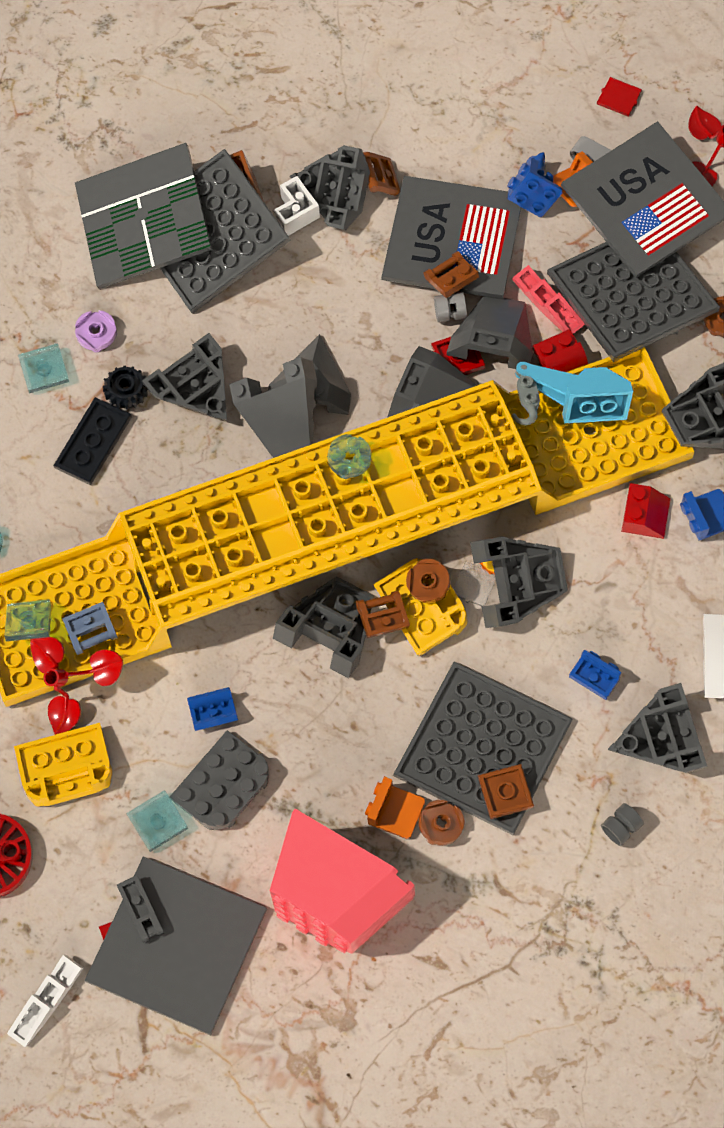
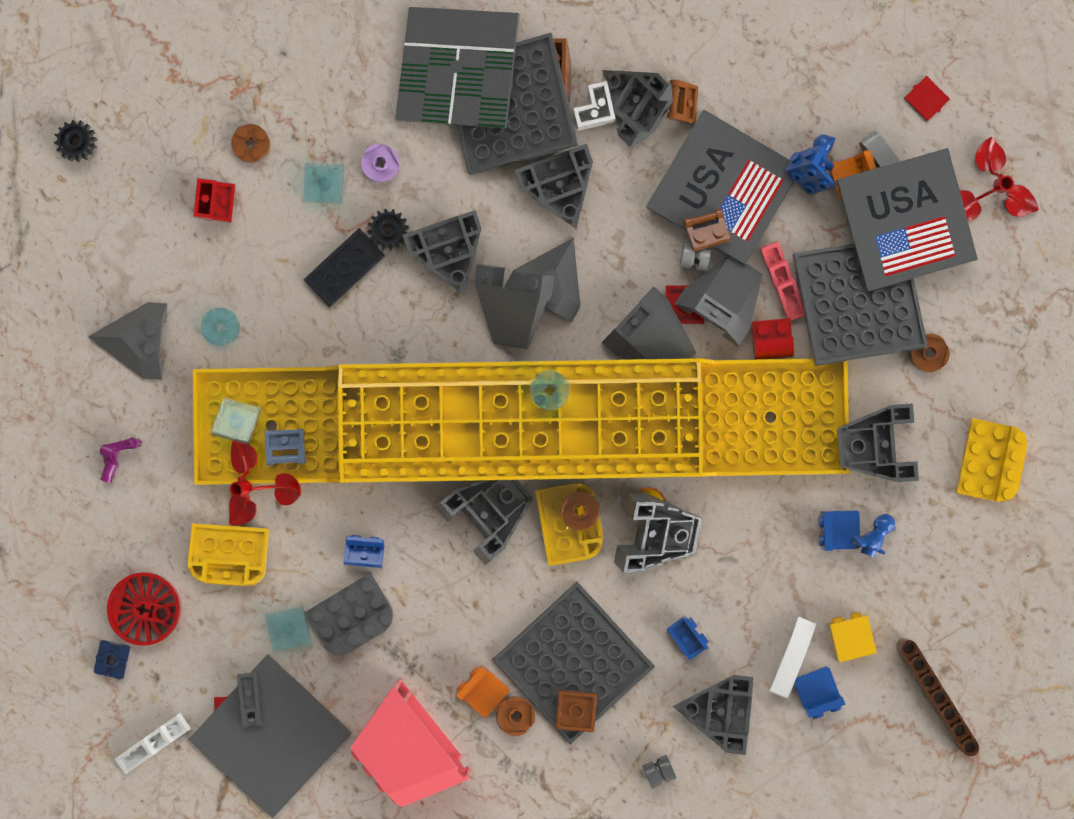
camera: 20 degrees right, 20 degrees up
(285, 282) = (559, 182): none -> dark grey wedge
(385, 620) = (532, 530): dark orange plate -> none
(586, 397) = (773, 395): medium azure slope -> none
(645, 511) = (787, 509): red slope -> none

